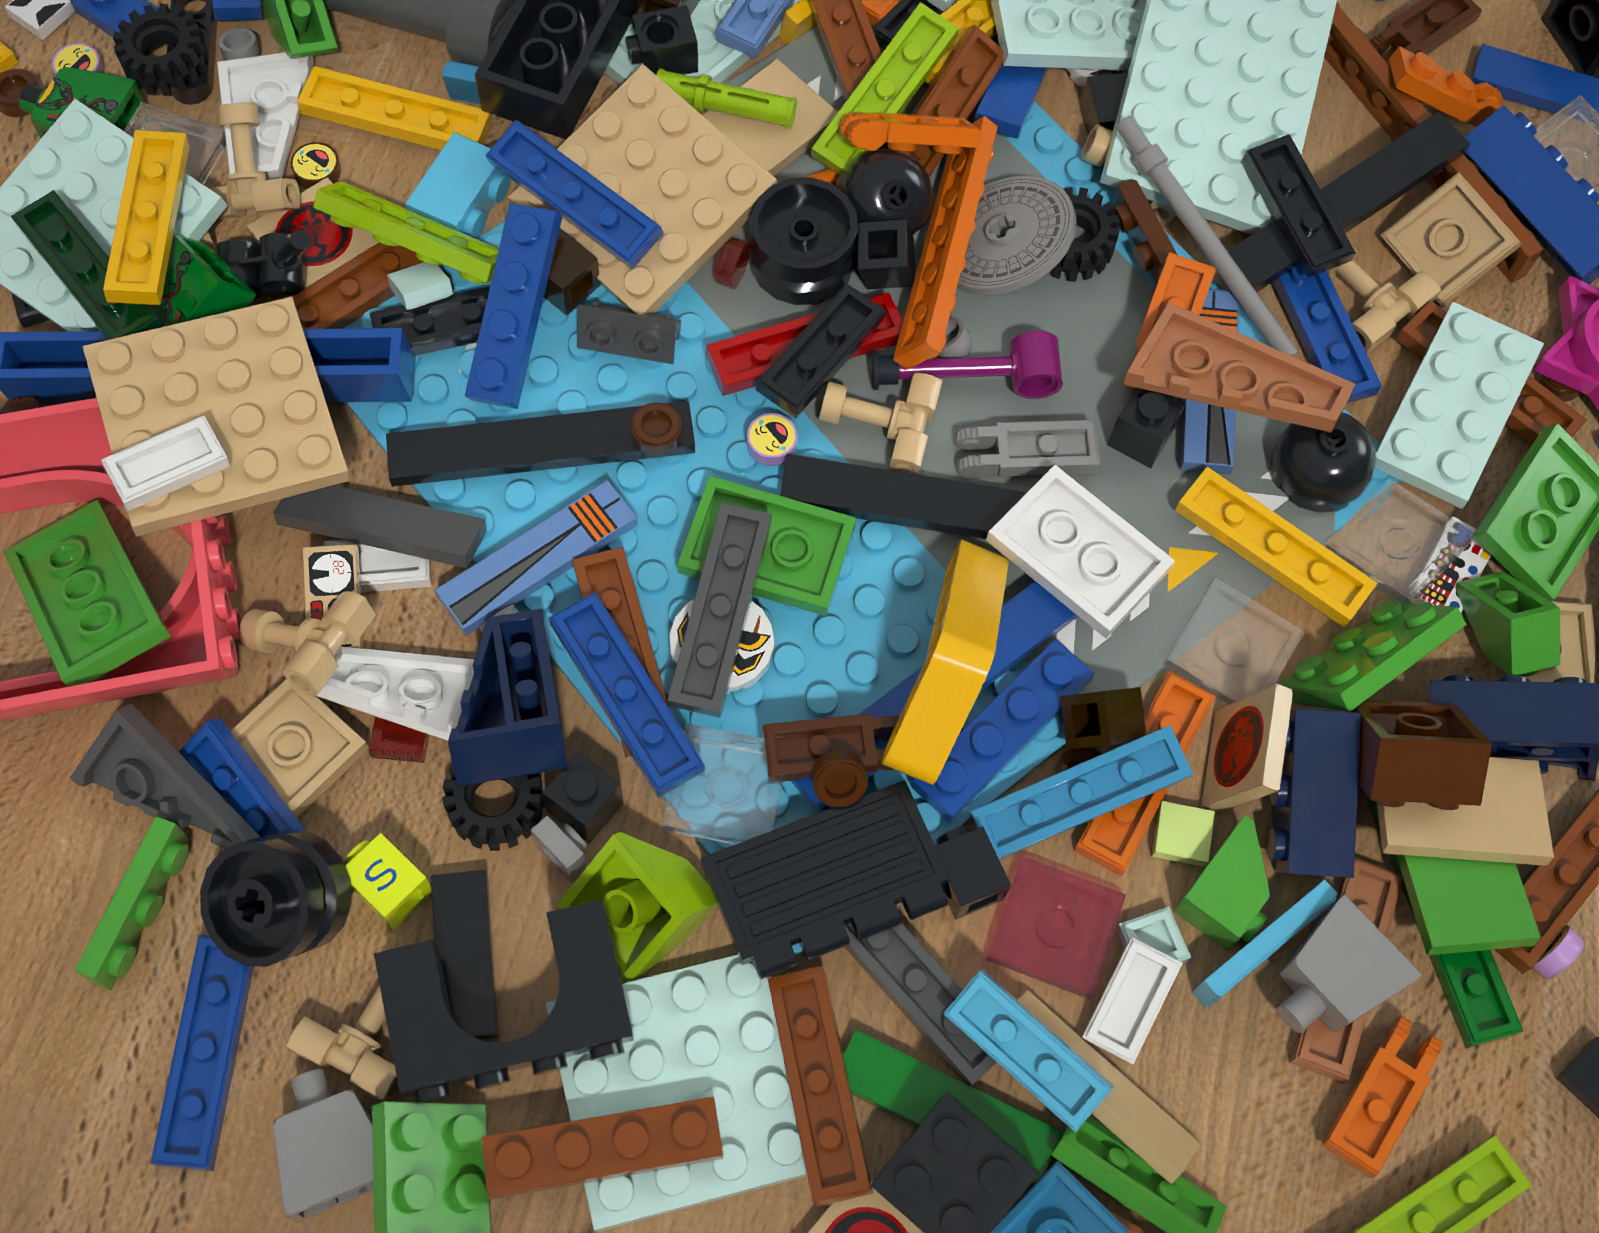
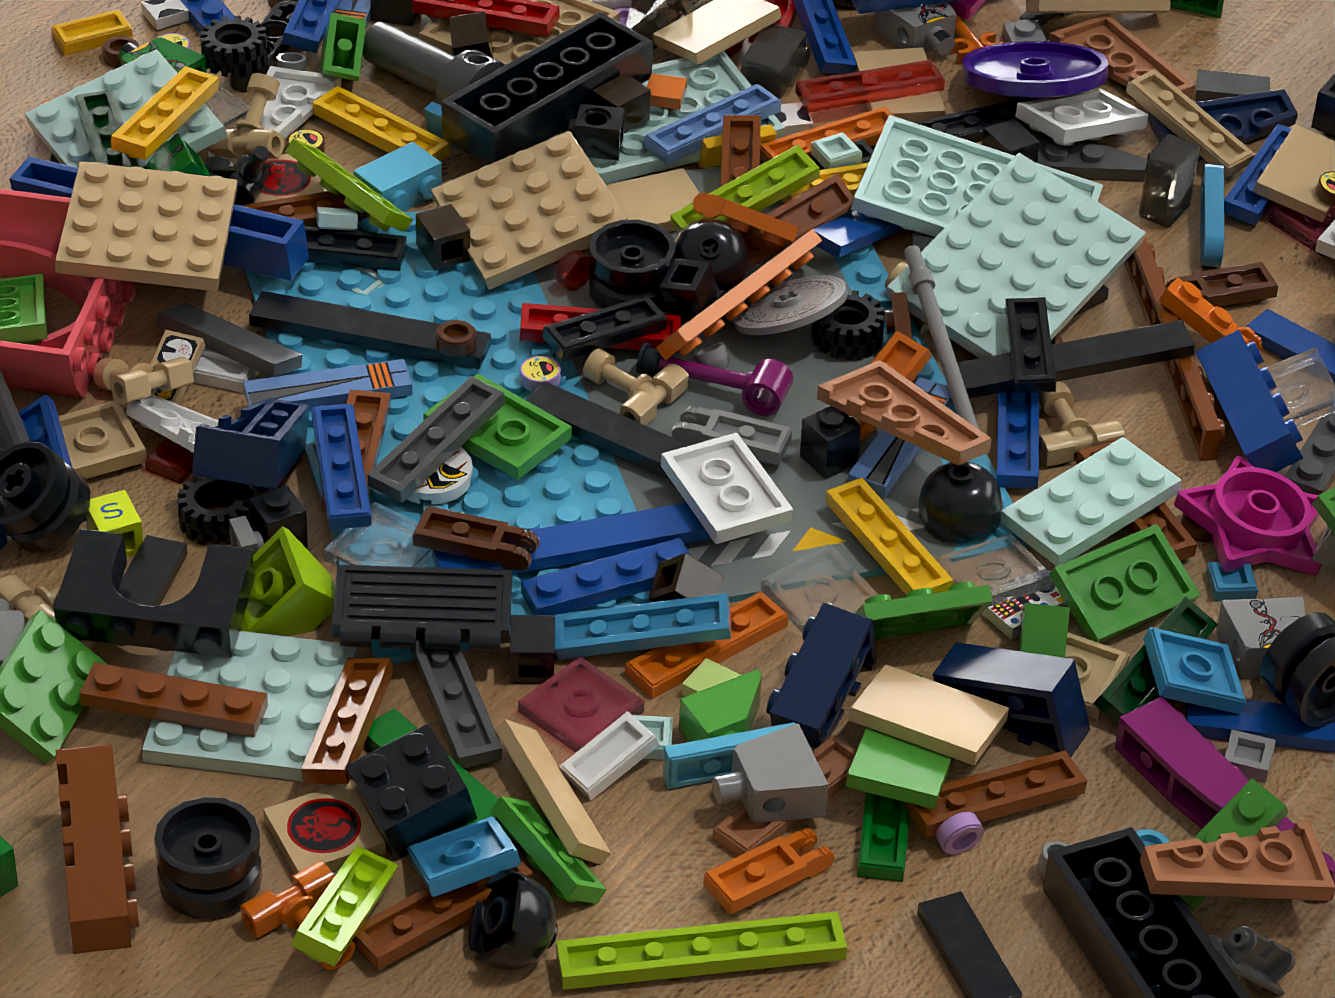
camera: 25 degrees right, 25 degrees down
(165, 463) = (97, 229): white tile -> none
(513, 306) = (393, 241): blue plate -> none
(574, 194) = (476, 192): blue tile -> none
(627, 334) = (470, 285): dark grey hinge -> none
(730, 99) = (614, 170): lime pin -> none
(839, 778) = (461, 547): reddish brown tile -> none
(955, 663) = (563, 483): yellow beam -> none
(1028, 1050) = (508, 741): medium azure tile -> none
(1247, 749) = (786, 631): tan tile -> none
(1421, 754) = (901, 657): reddish brown slope -> none
(1451, 238) = (1155, 407): tan tile -> none

